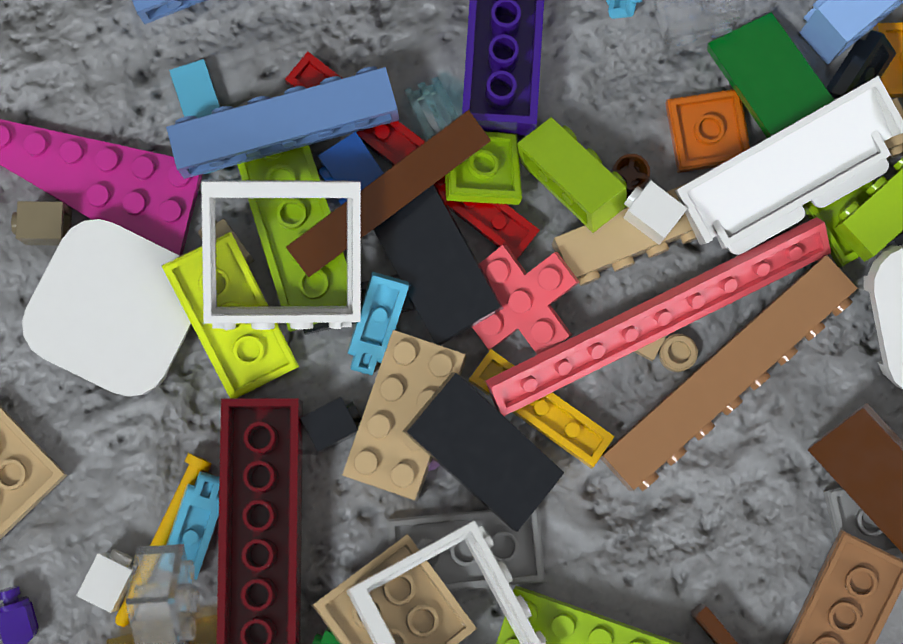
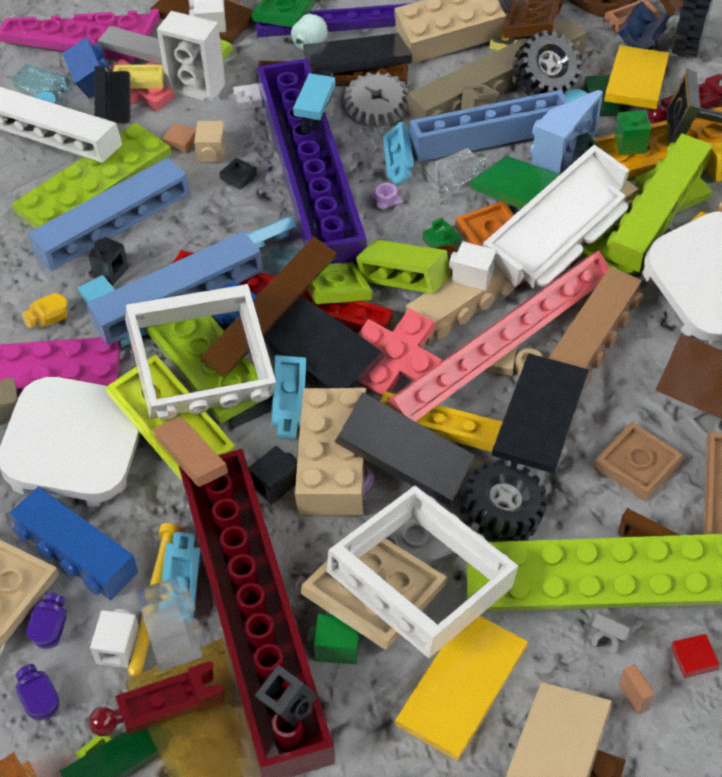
camera: 15 degrees left, 30 degrees down
(42, 535) = (47, 621): none -> dark purple arm
(88, 446) = (73, 543): none -> blue brick
(124, 97) = (46, 311): none -> yellow arm
(209, 38) = (104, 256): none -> black brick
(237, 386) = (190, 451): none -> nougat tile
(413, 54) = (277, 230): none -> medium azure hinge
(592, 24) = (386, 196): none -> lavender plate
(592, 545) = (503, 502): none -> black wheel
(640, 124) = (441, 234): none -> green tile
(657, 452) = (540, 413): none -> black tile
(751, 529) = (638, 461): none -> medium nougat tile

